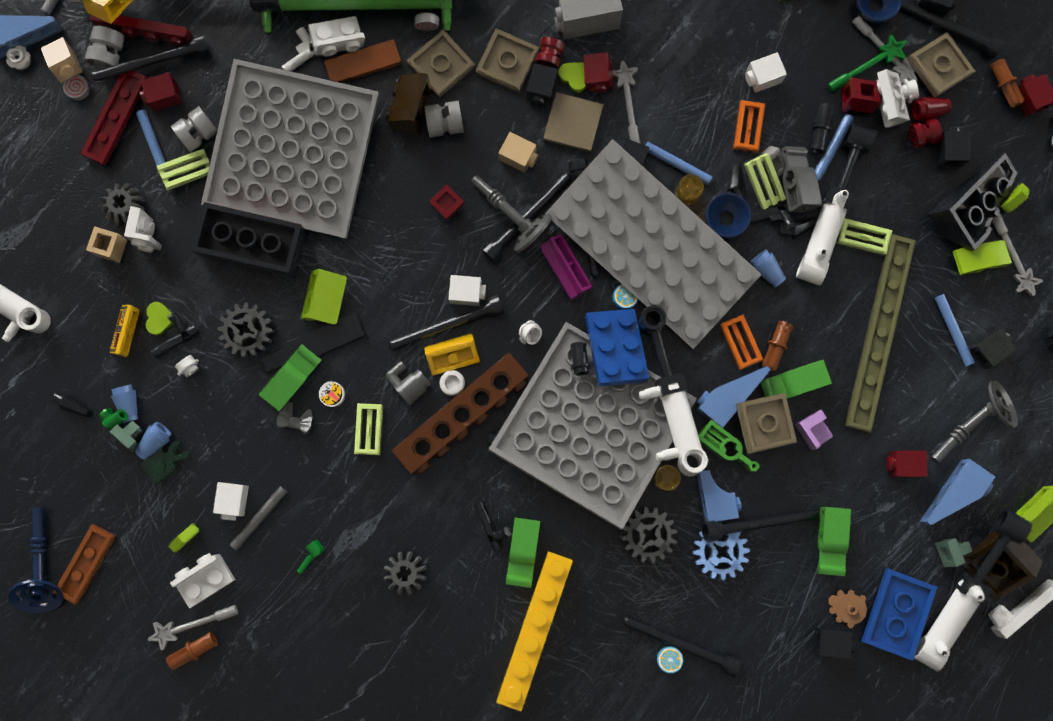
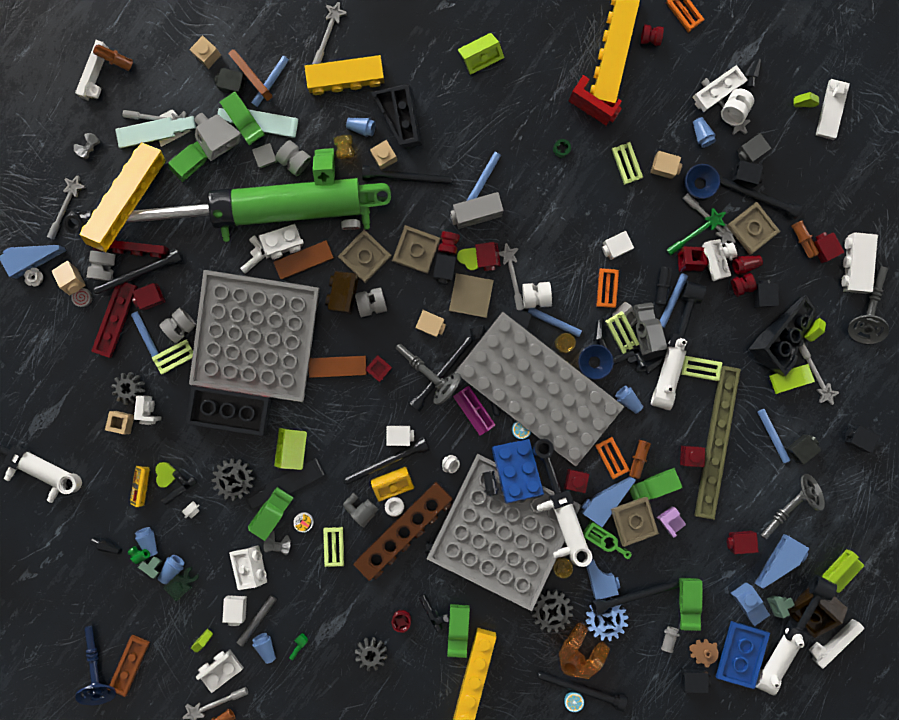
camera: 10 degrees left, 5 degrees up
(254, 446) = (248, 567): none -> white bracket
(265, 553) = (264, 647): none -> medium blue cone
(394, 198) = (337, 366): none -> dark orange tile
(448, 532) = (401, 624): none -> dark red wheel
(658, 125) = (537, 295): none -> white wheel
(668, 593) = (573, 662): none -> clear orange piece
(693, 365) = (576, 480): none -> dark red brick
(803, 585) = (670, 639): none -> light grey pin
(847, 346) = (692, 456): none -> dark red brick
(913, 546) = (750, 603): none -> medium blue arch

